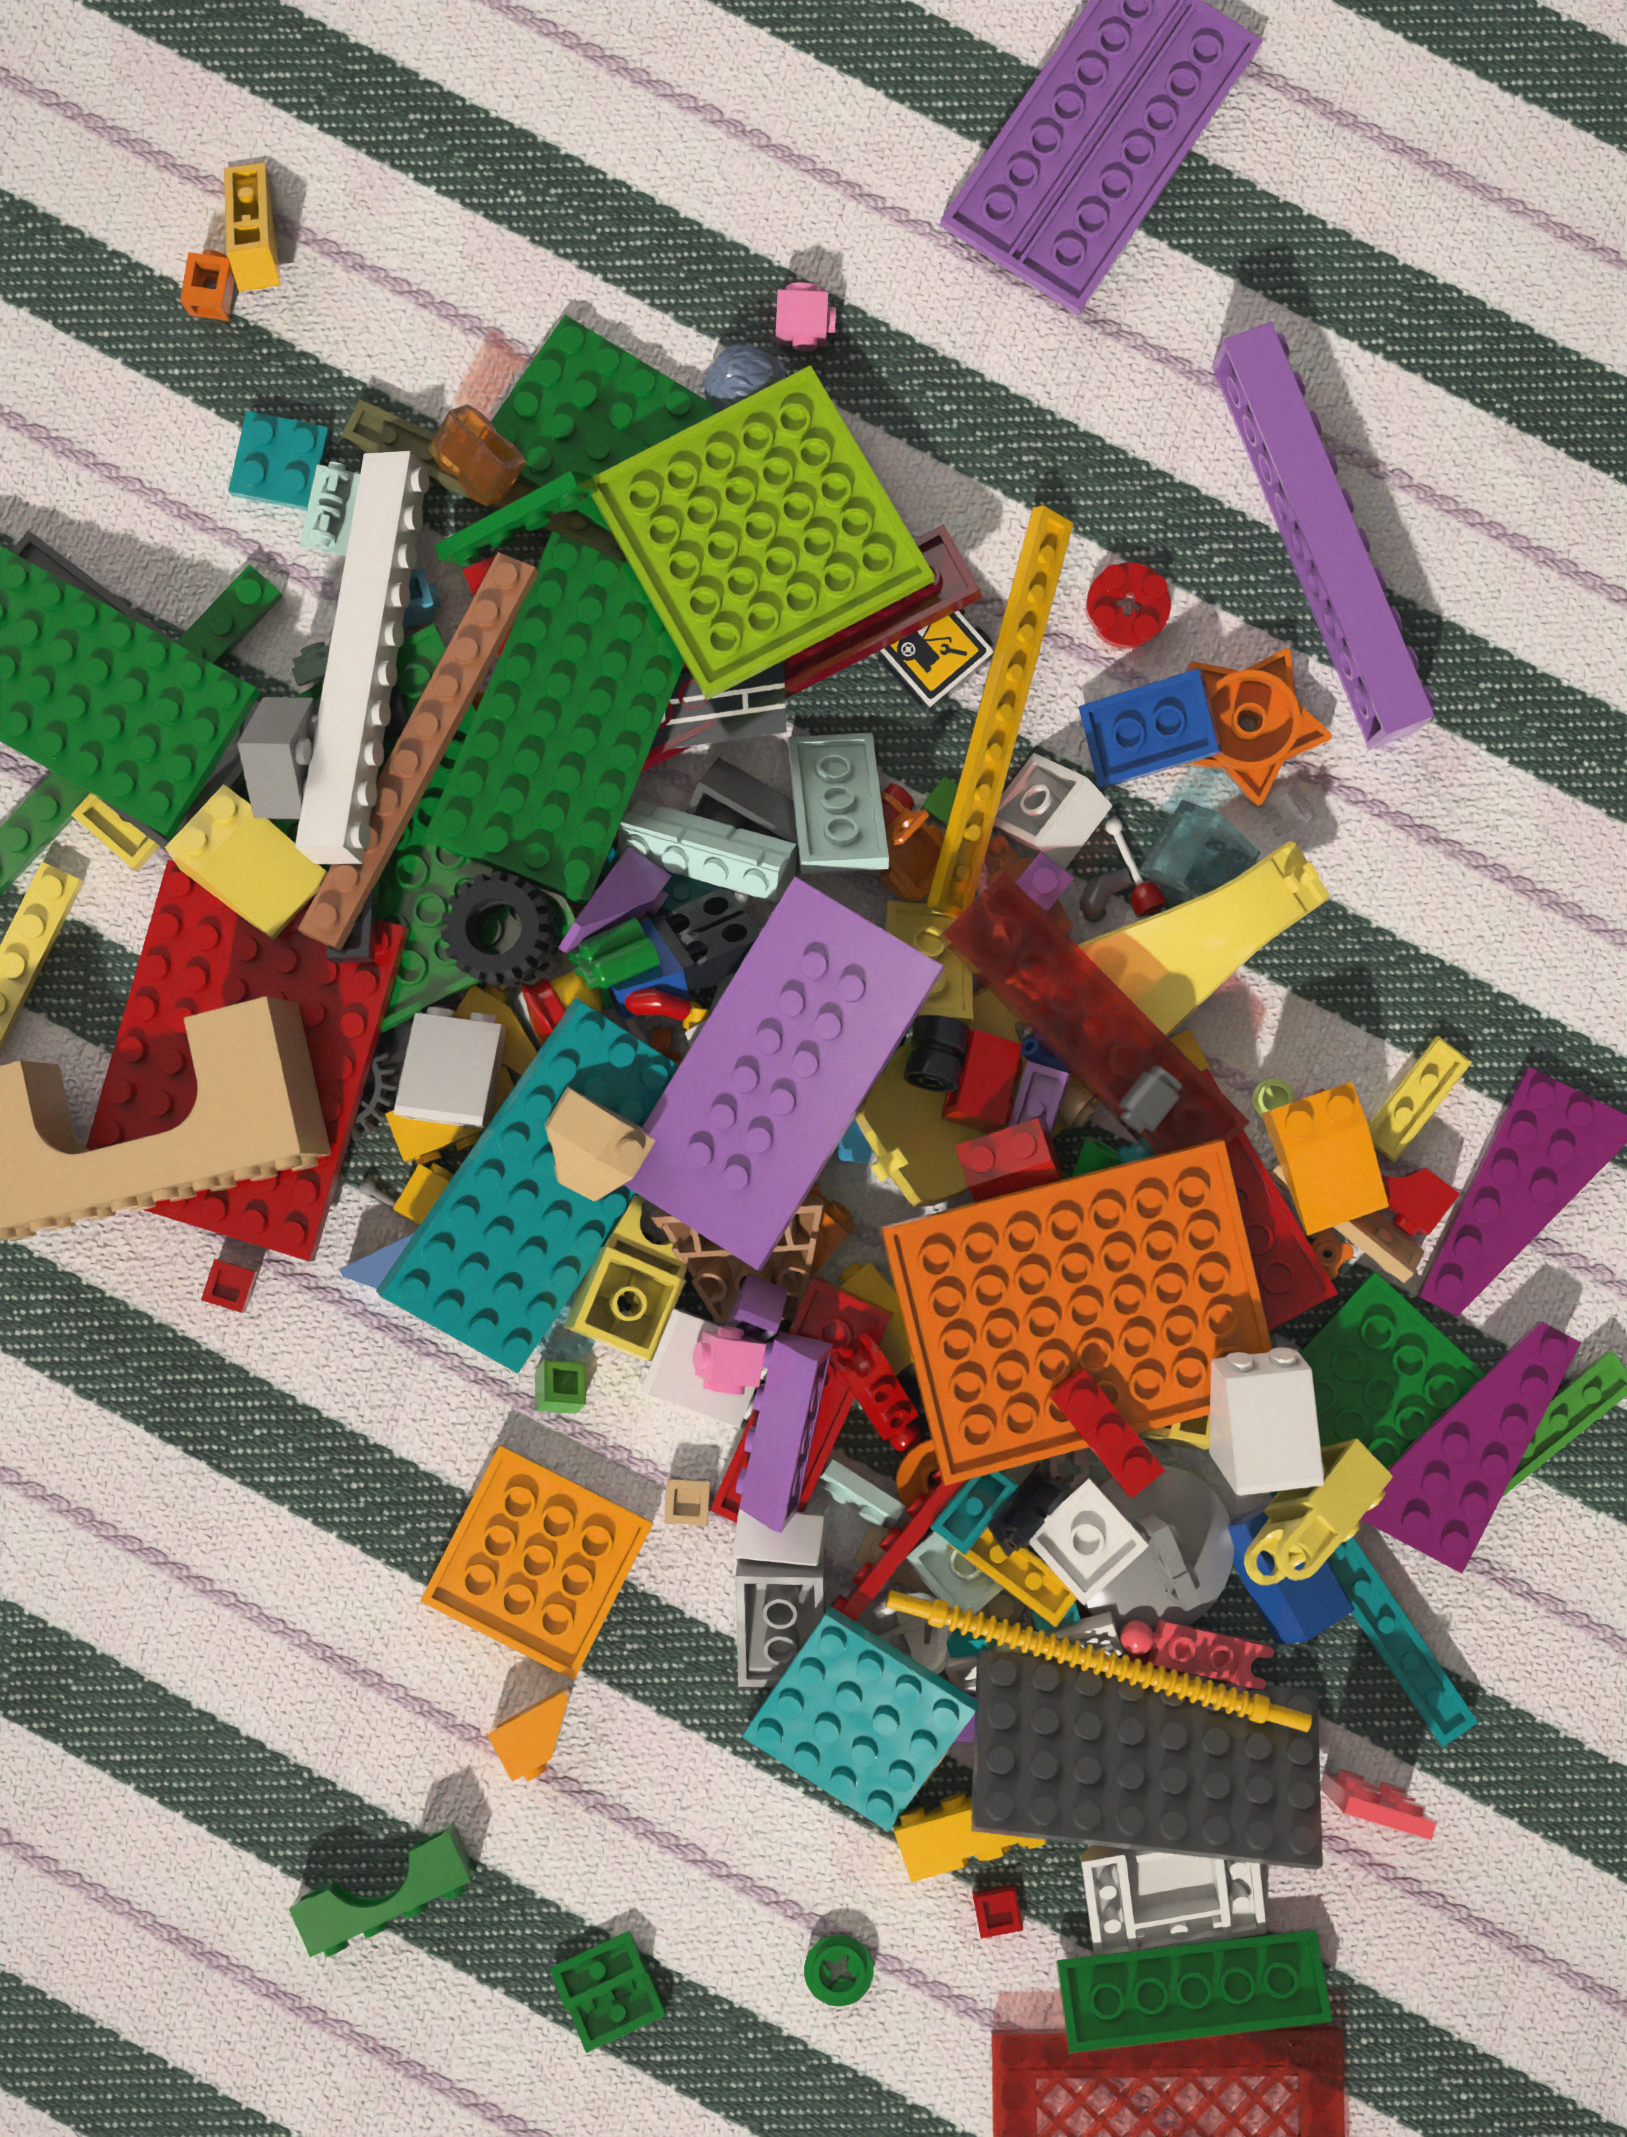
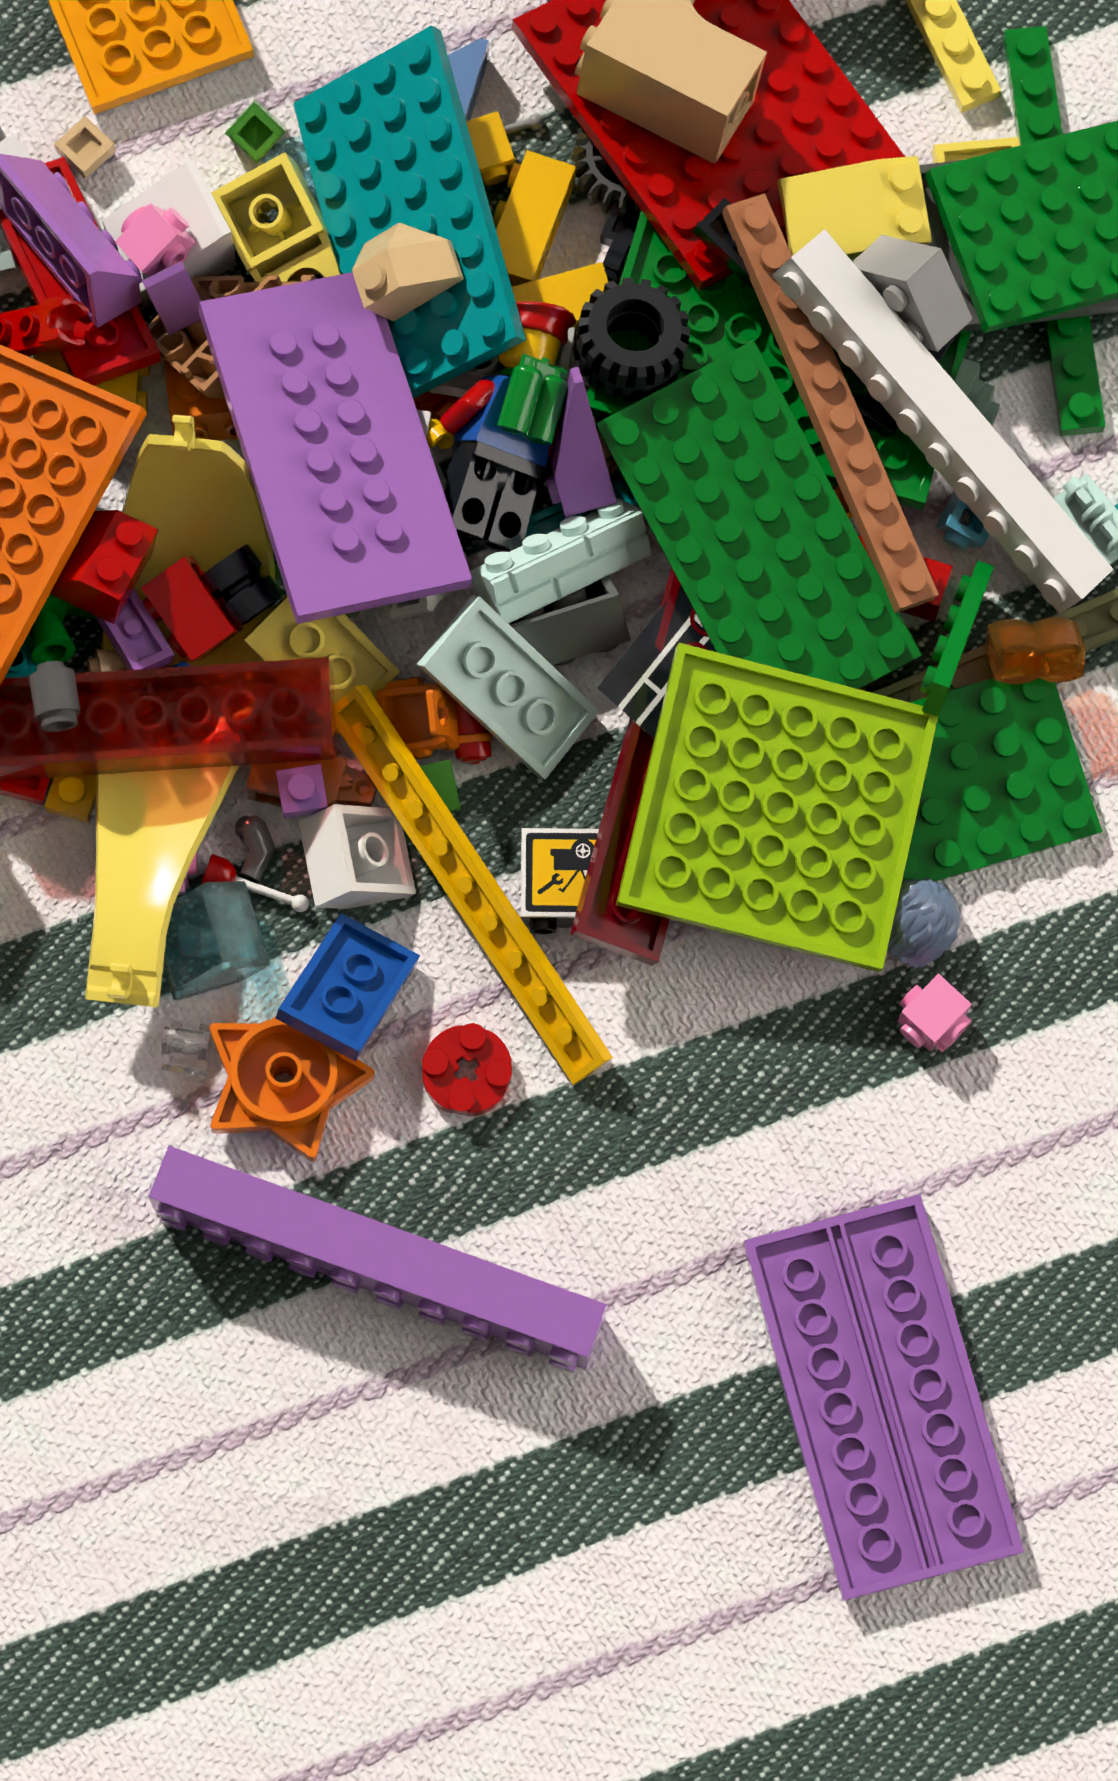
camera: 130 degrees right, 10 degrees down
(451, 1069) = (558, 225): white slope -> none

